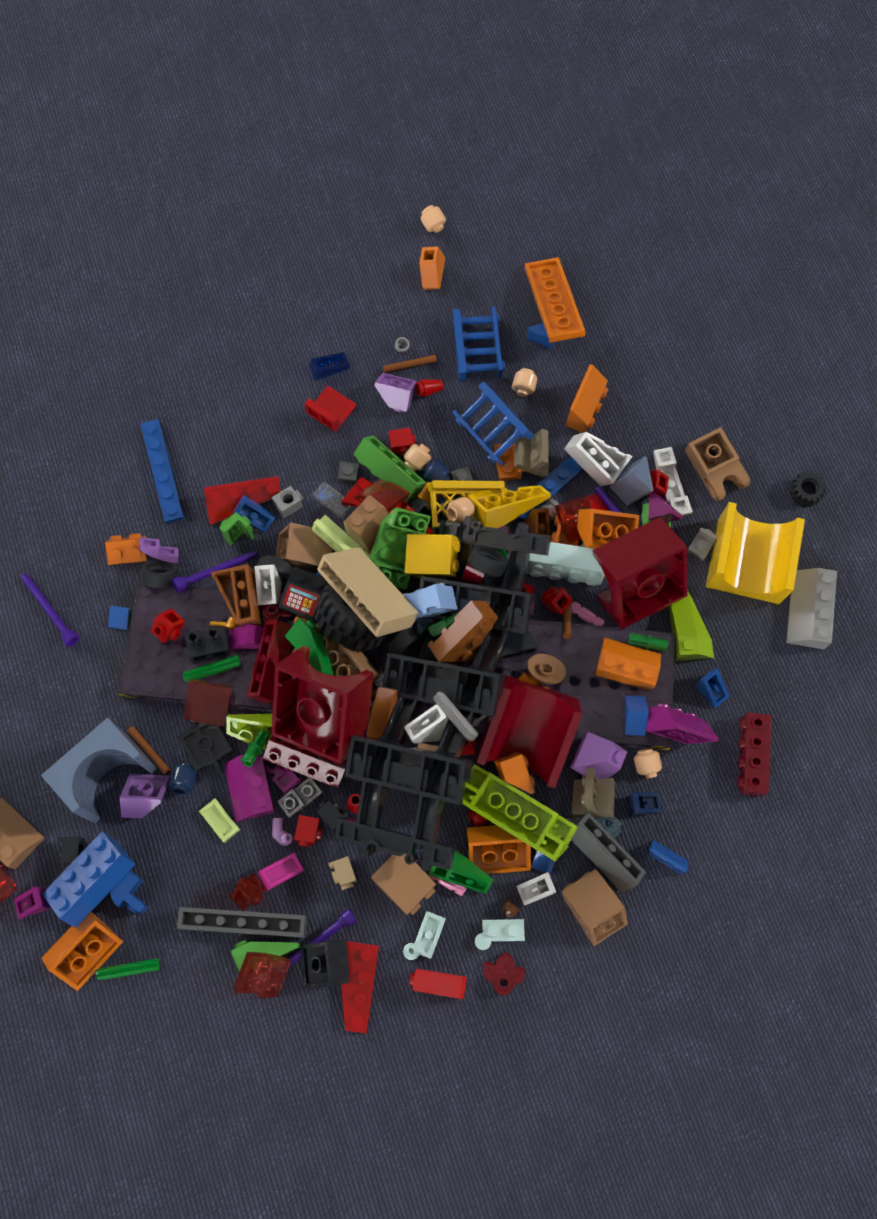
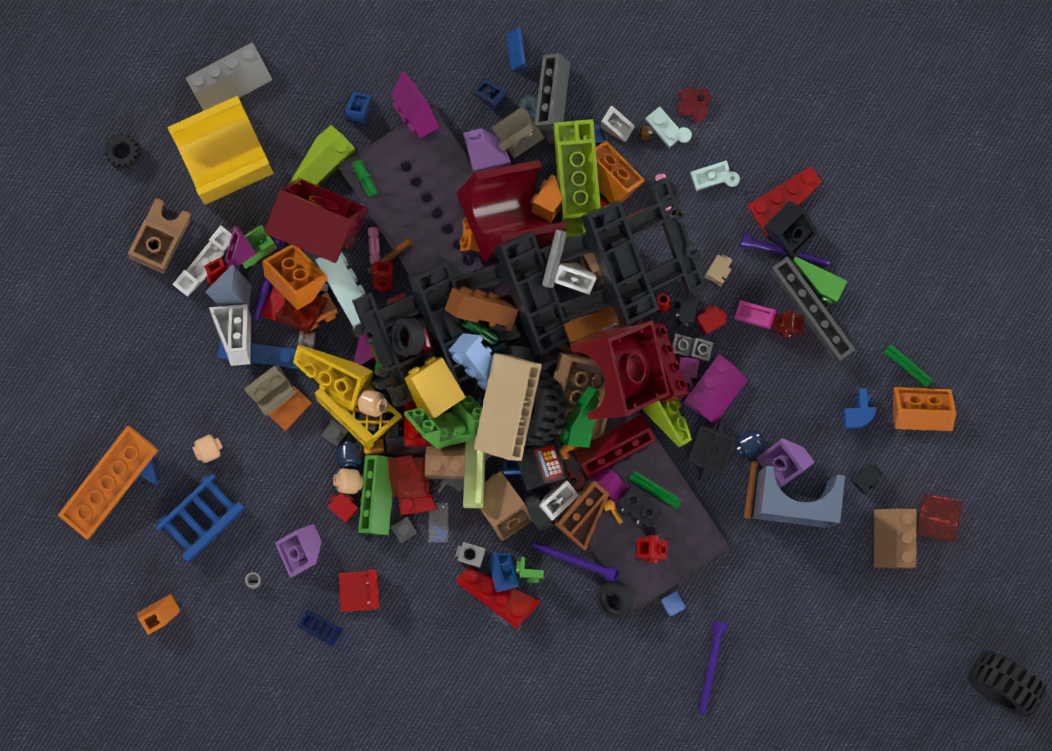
camera: 130 degrees left, 10 degrees up
(31, 903) = (924, 474): magenta slope -> none
(88, 879) = (875, 443): blue brick -> none
(124, 550) = (614, 649): orange bracket -> none
(152, 548) = (597, 617): medium lavender slope -> none
(162, 471) = (526, 683): blue plate -> none
(206, 702) = (683, 470): clear red slope -> none
(219, 820) = (756, 392): yellowish green tile -> none
(255, 748) = (686, 402): green axle -> none
(261, 974) = (834, 266): clear red slope -> none
(279, 834) = (730, 338): lavender arm -> none
(404, 883) = (696, 218): medium nougat slope -> none
(410, 363) = (263, 561): dark orange bar -> none
(428, 387) = (275, 526): red cone -> none
(433, 219) = (105, 655): light nougat head -> none
(438, 983) = (738, 140): red slope -> none
(463, 874) = (645, 176): green slope -> none
(509, 419) = (253, 445): blue fence -> none
(539, 521) = (330, 335): reddish brown slope -> none
(546, 669) = (443, 236): medium nougat dish -> none
(587, 400) = (184, 383): orange slope -> none
(595, 907) = (595, 75): medium nougat slope -> none
(628, 664) = (393, 180): orange slope -> none
(636, 715) = (430, 146): blue slope -> none
(647, 762) = (457, 113): light nougat head -> none
(702, 543) = (240, 200): light grey bracket -> none
(754, 754) = (386, 41): dark red brick -> none

